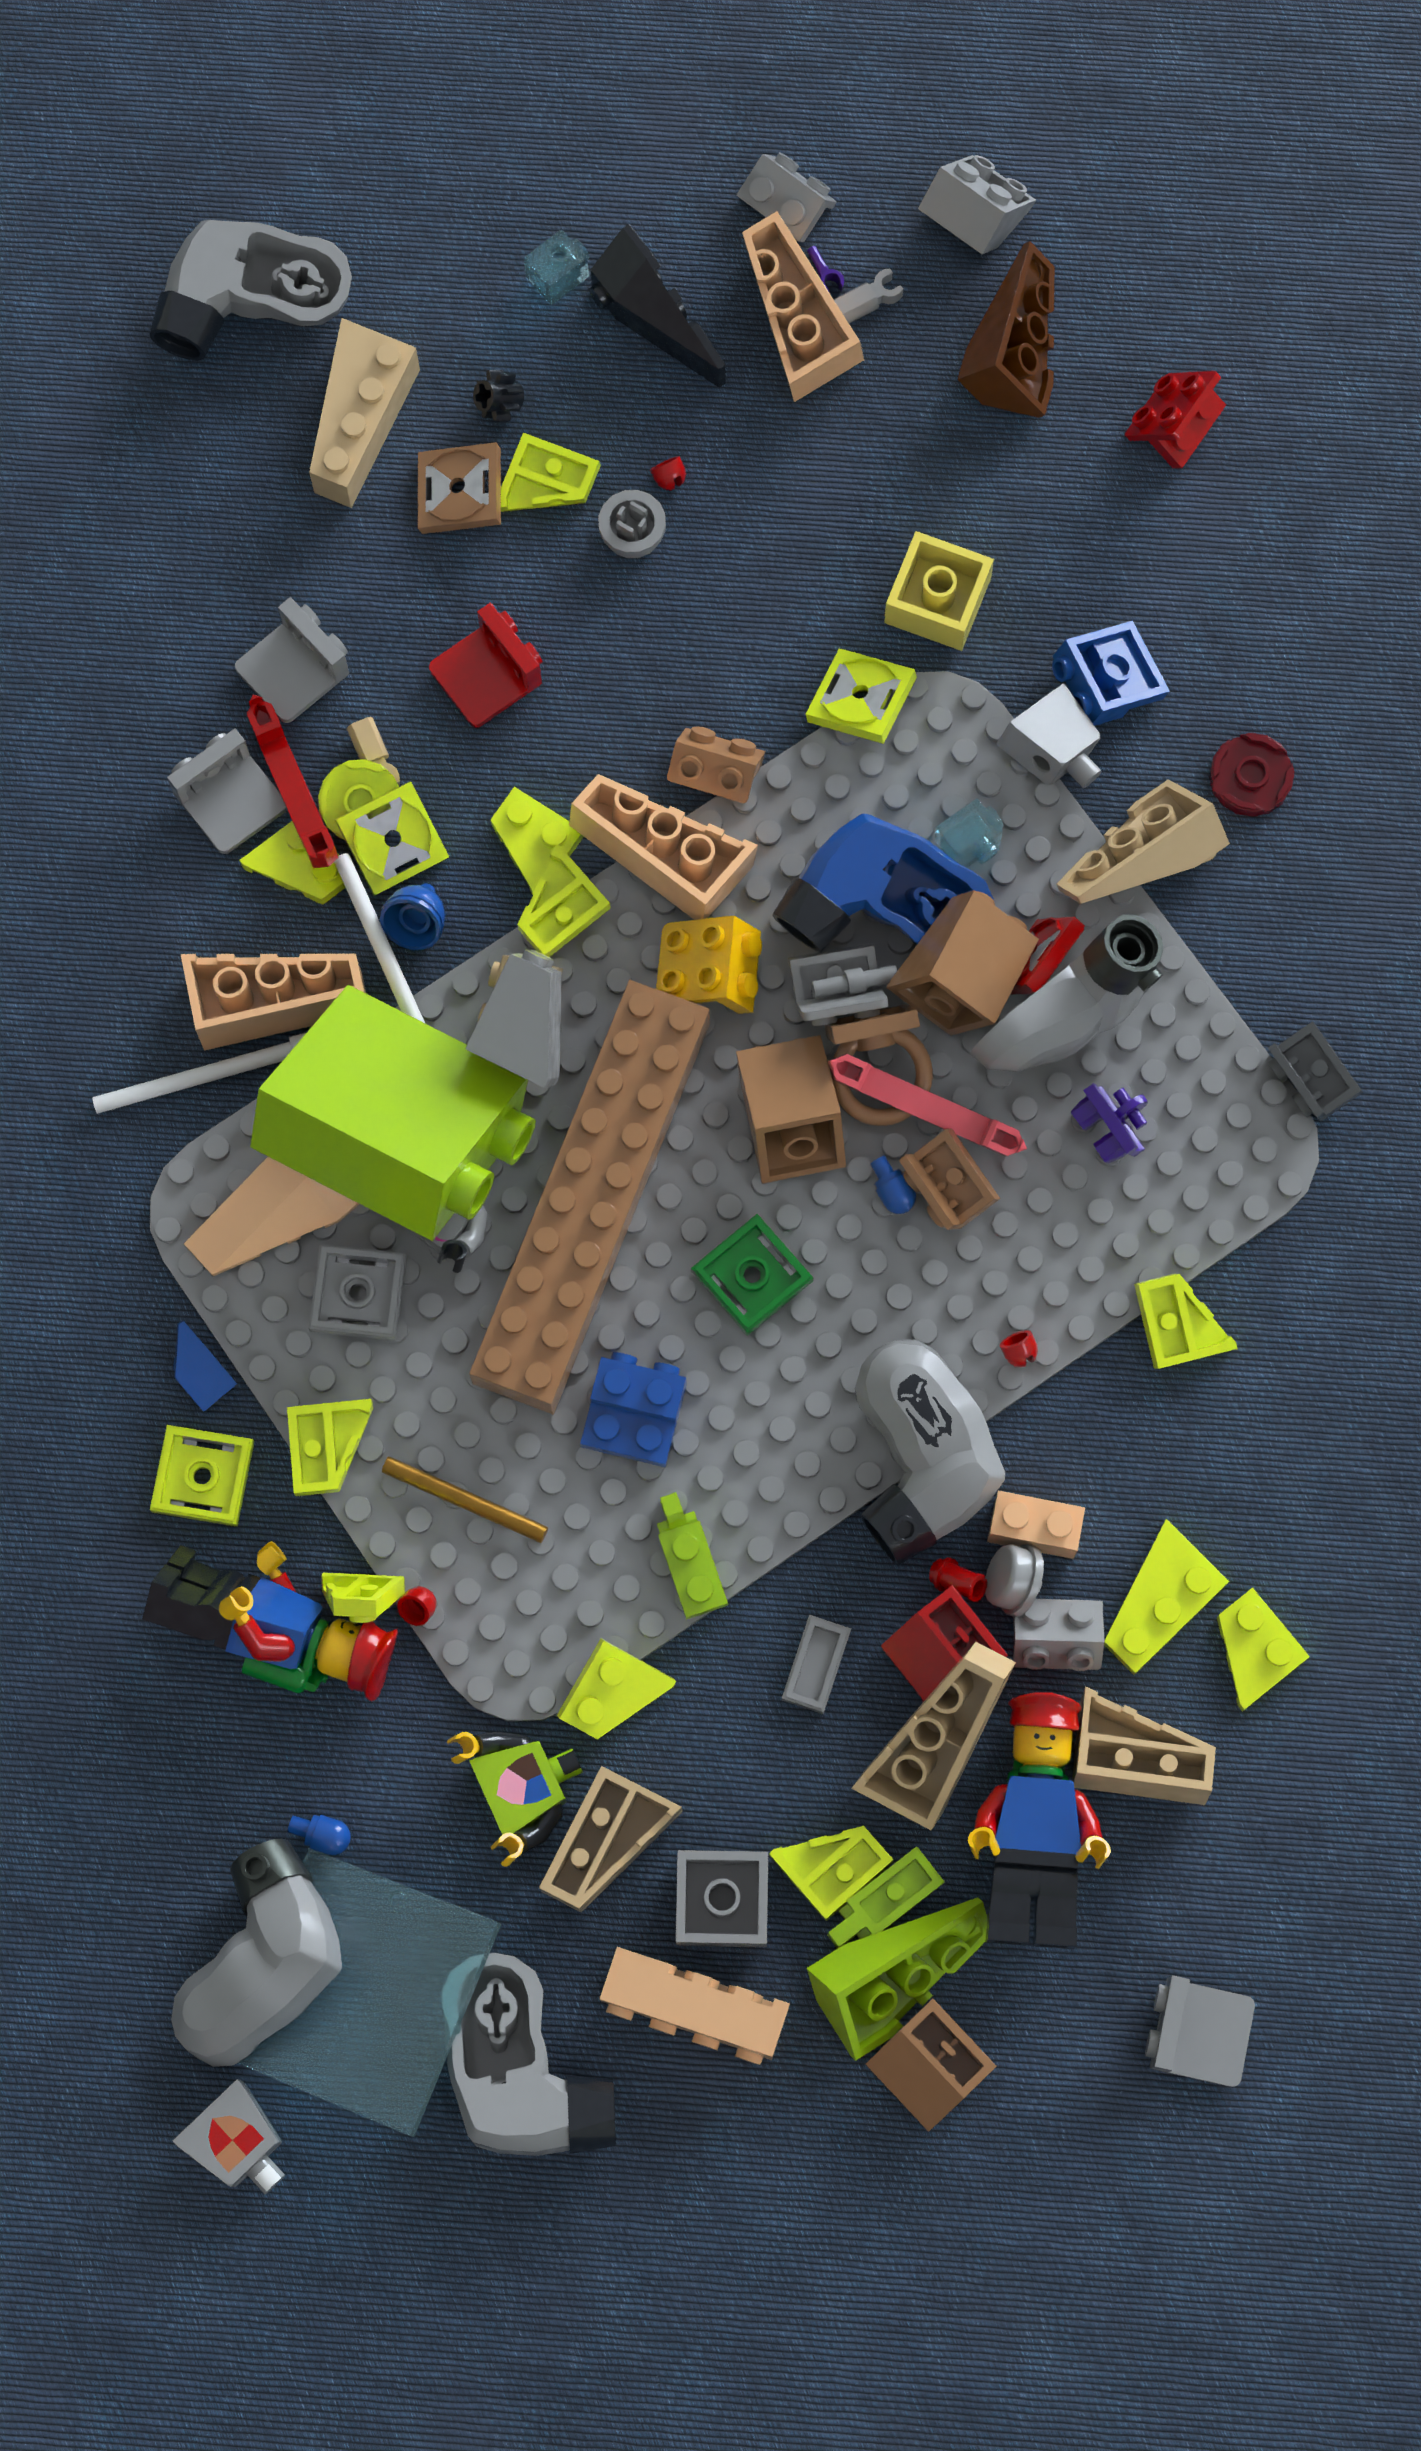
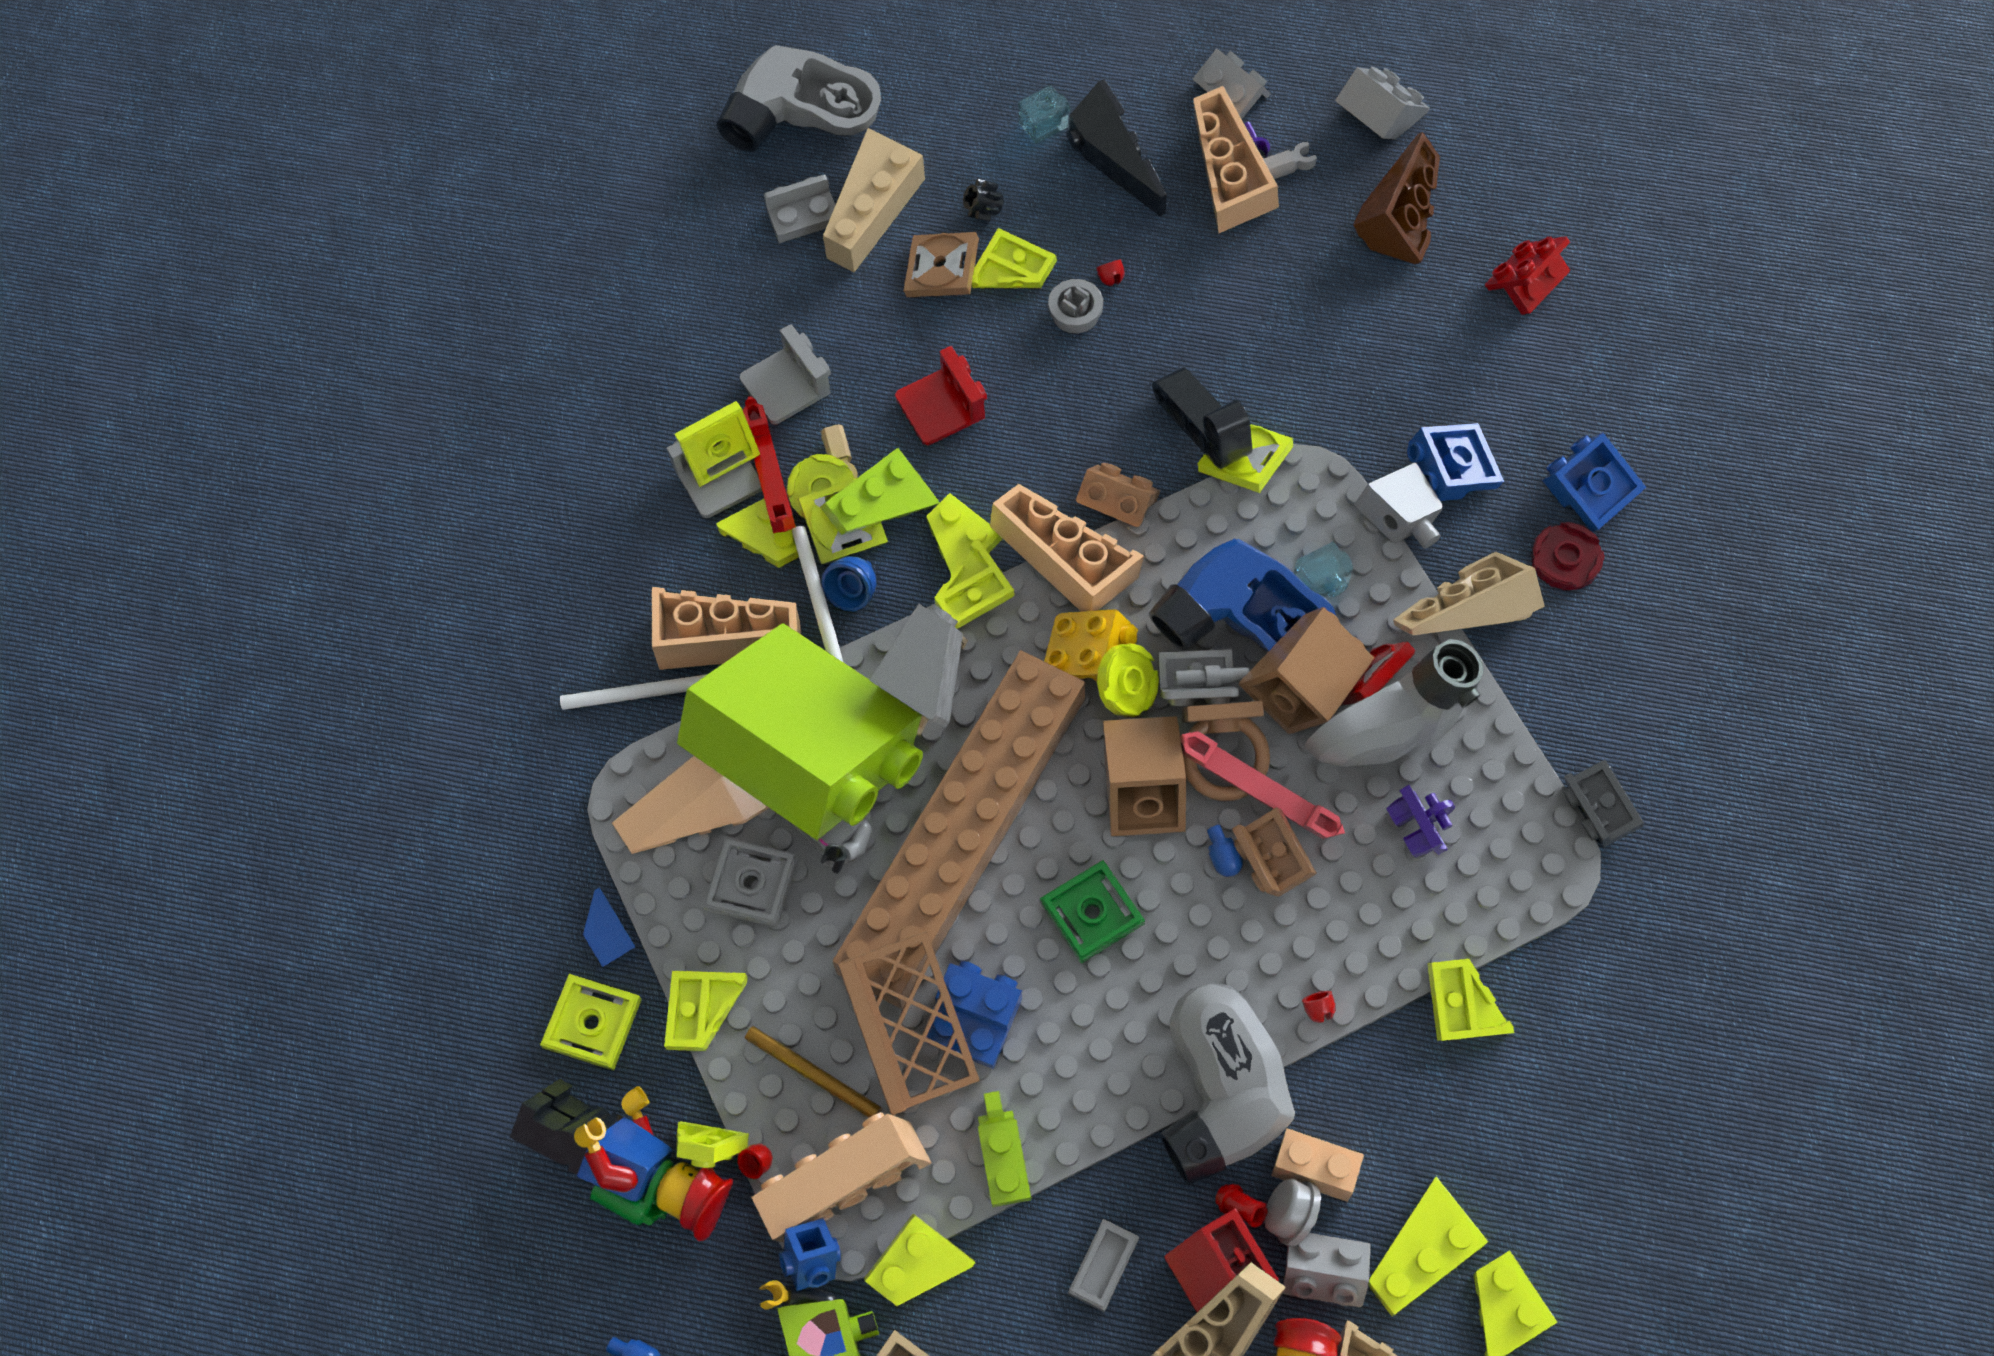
camera: 10 degrees right, 10 degrees down
(228, 765) = (712, 461): none -> neon yellow piece
(272, 432) = (800, 208): none -> light grey bracket
(432, 803) = (880, 494): none -> lime wing
(496, 1699) = (809, 1254): none -> blue brick
(514, 1610) = (840, 1174): none -> light nougat wedge
(530, 1449) = (875, 1033): none -> medium nougat fence
(758, 998) = (1127, 680): none -> neon yellow tile
(825, 674) = (1217, 430): none -> black beam
(938, 590) = (1319, 381): light yellow brick -> none
(1274, 678) = (1593, 480): none -> blue plate

